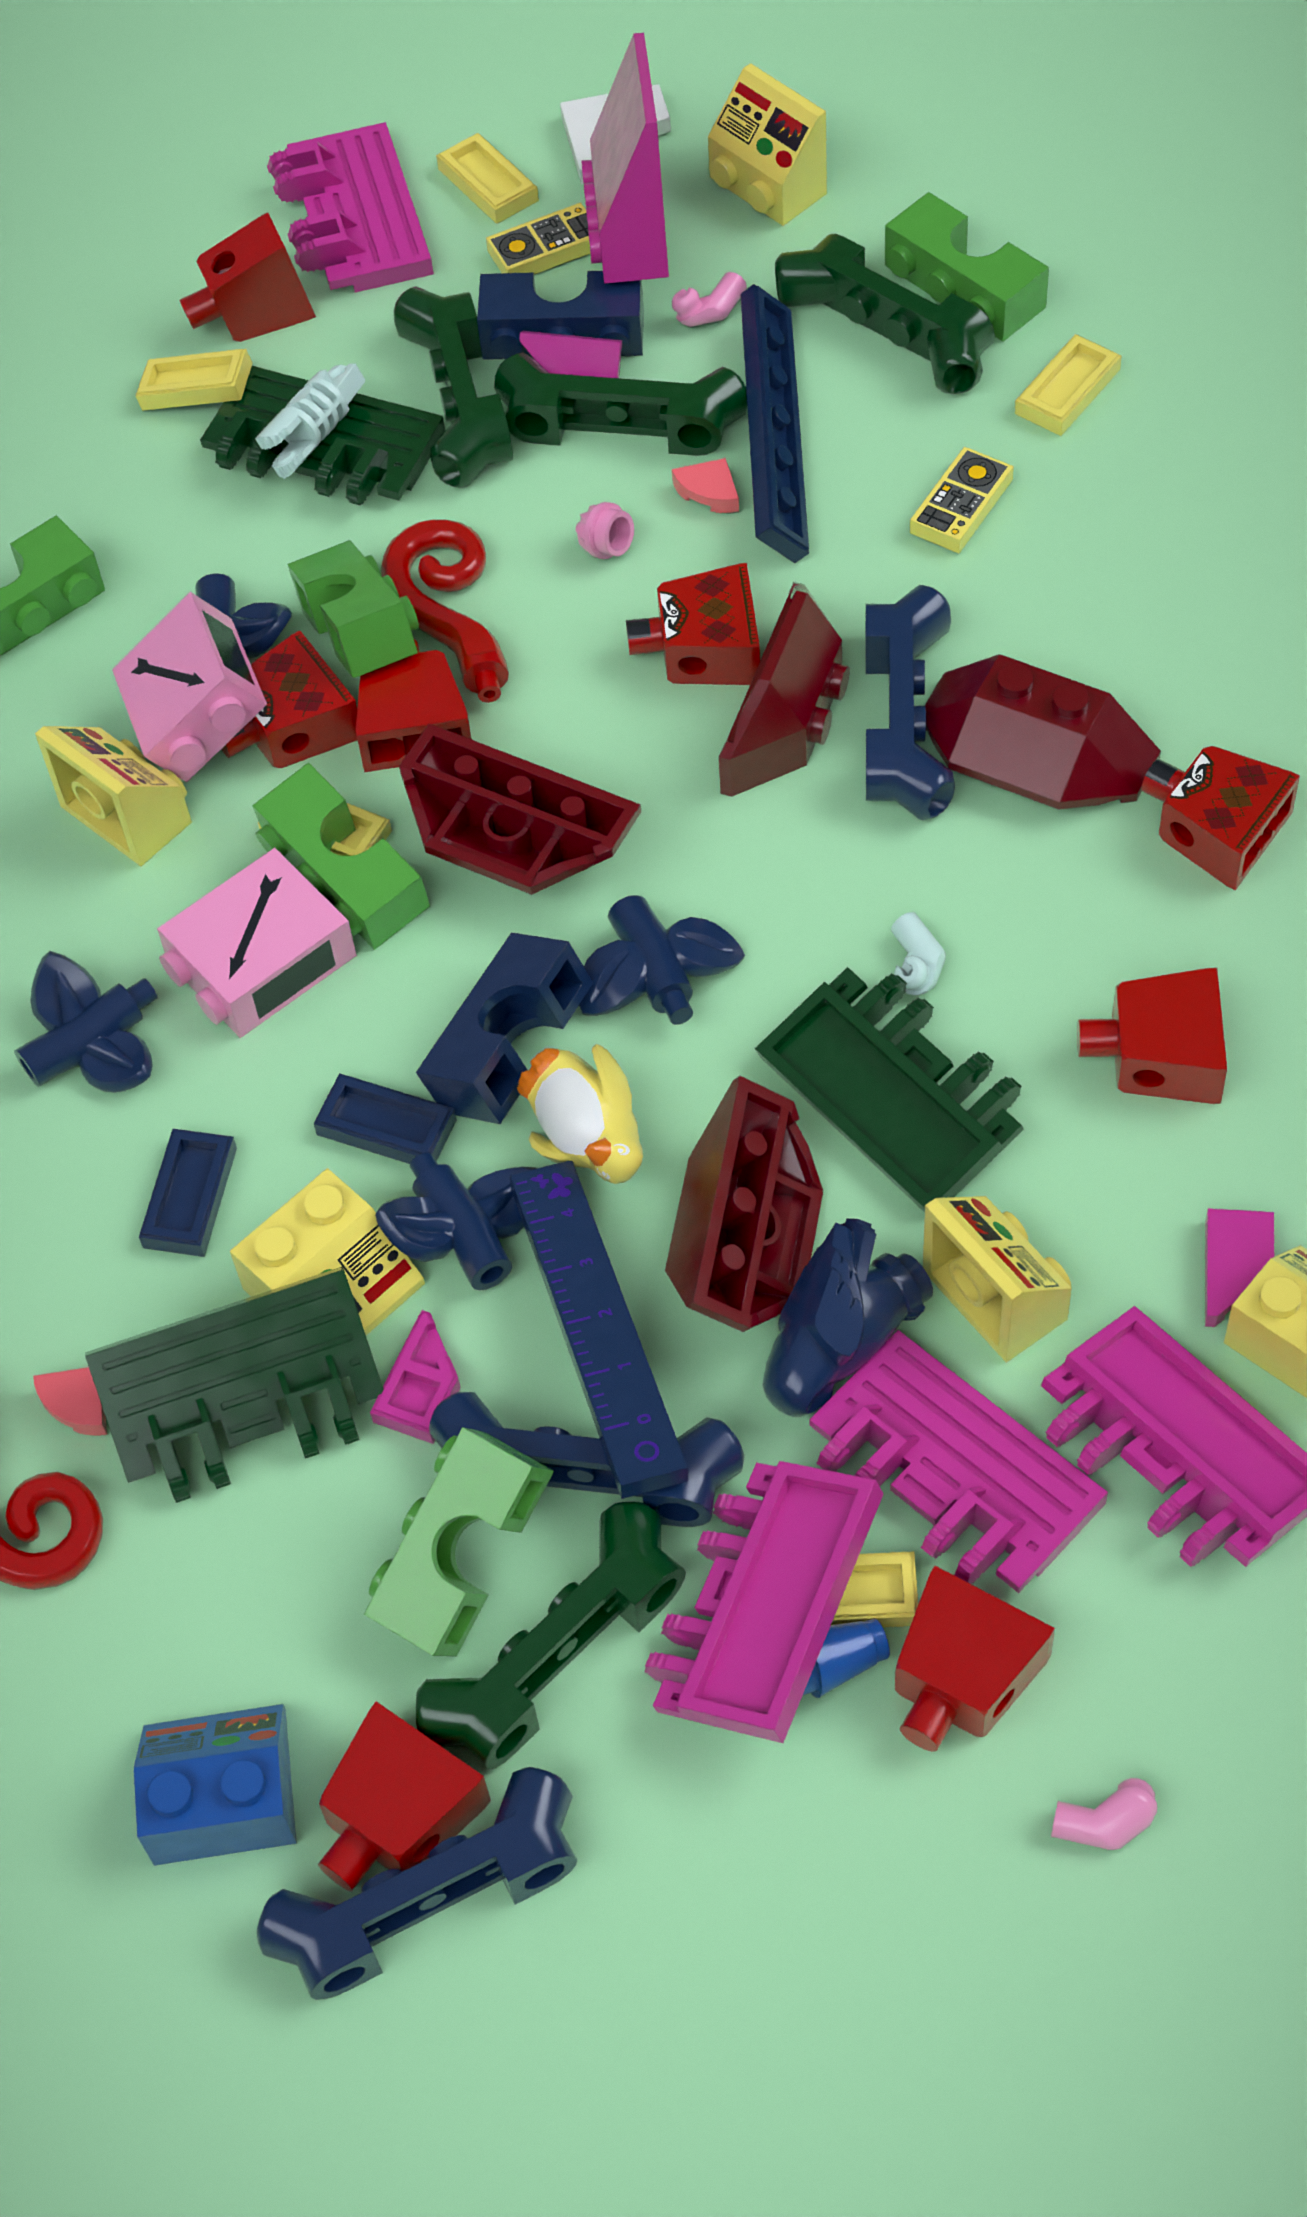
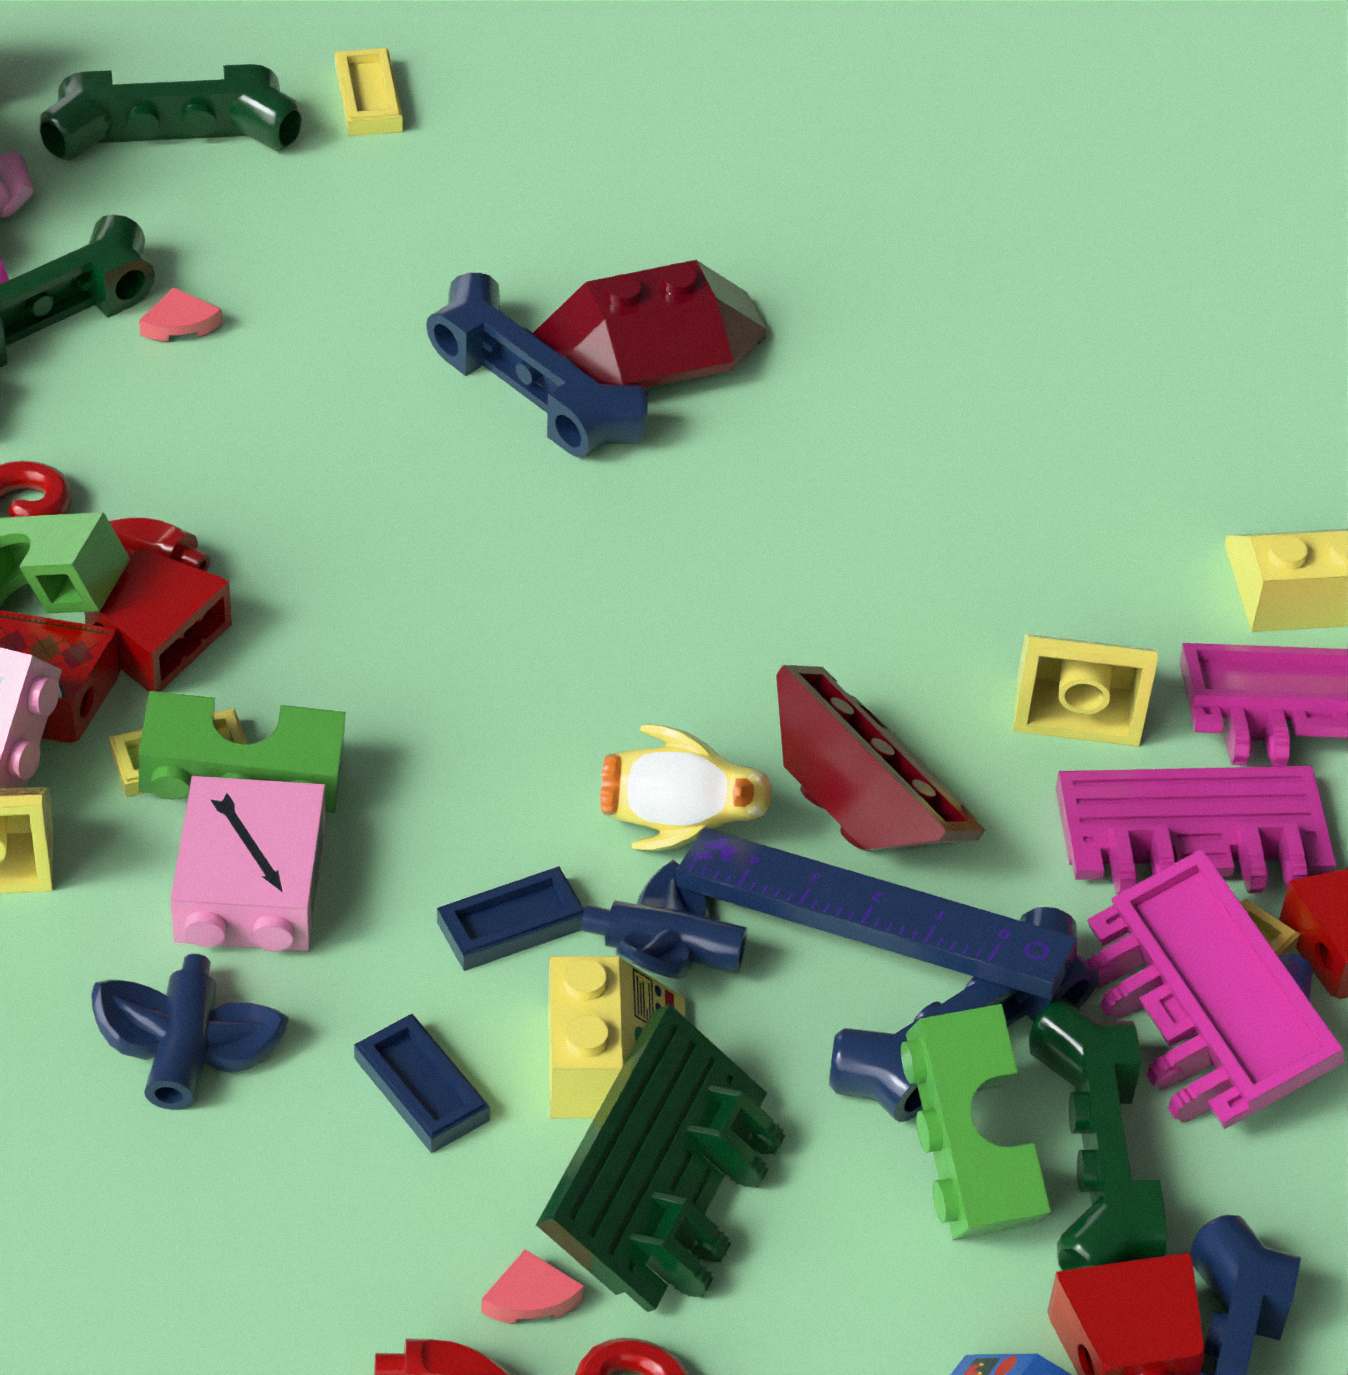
camera: 55 degrees left, 10 degrees down
(416, 1382) = (779, 1065): dark pink tile -> none
(508, 813) = (357, 622): dark red wedge -> none
(523, 988) = (516, 739): dark blue arch -> none
(605, 530) = (141, 394): bright pink plate -> none
(655, 961) = (576, 664): dark blue plant -> none
(703, 628) = (321, 412): red torso -> none
(774, 424) = (184, 238): dark blue tile -> none
(787, 698) = (437, 408): dark red wedge -> none
(840, 1316) = (1021, 787): dark blue animal -> none
(885, 1086) = (855, 627): dark green hinge -> none
(924, 954) = (760, 527): light aqua arm -> none
(930, 251) = (150, 51): bright green arch -> none
(961, 499) = (391, 213): tile -> none
(1163, 1037) = (994, 463): red torso -> none
(1222, 809) = (844, 299): red torso -> none
(1235, 1252) = (1200, 571): dark pink tile -> none

